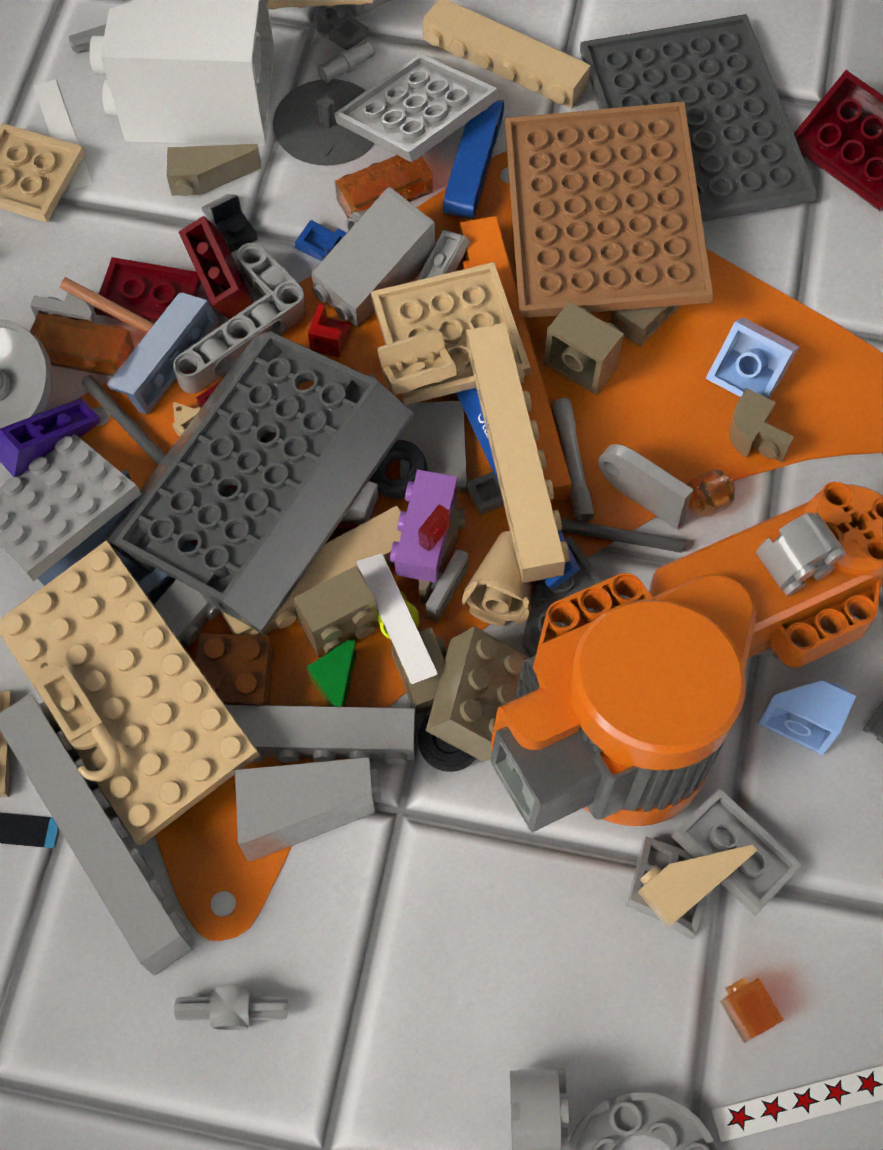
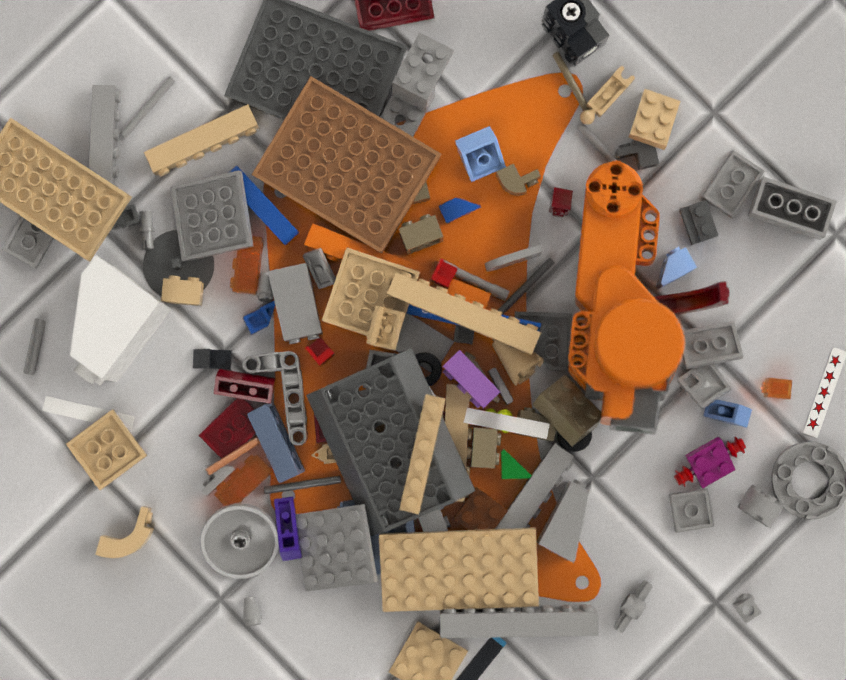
camera: 55 degrees left, 20 degrees up
(76, 716) = (465, 600): tan plate -> none
(204, 168) = (170, 354): dark tan slope -> none
(264, 509) = (422, 454): none -> tan plate
(294, 135) = (182, 291): none -> tan brick
(434, 528) = (483, 380): clear red tile -> none
(454, 1003) = (691, 510): none -> light grey tile
(551, 400) = (443, 274): none -> red panel
(553, 977) = (710, 462): none -> magenta plate
(654, 955) = (728, 413): none -> medium blue slope
(656, 379) = (457, 208): none -> blue slope
(686, 882) = (714, 379): tan slope -> none
(711, 492) = (536, 228): clear orange head -> none
(772, 212) = (416, 83): none -> light grey bracket
(772, 495) = (560, 202): none -> dark red slope
(783, 768) = (696, 300): none -> dark red arch
(800, 552) = (617, 230): light grey brick -> none

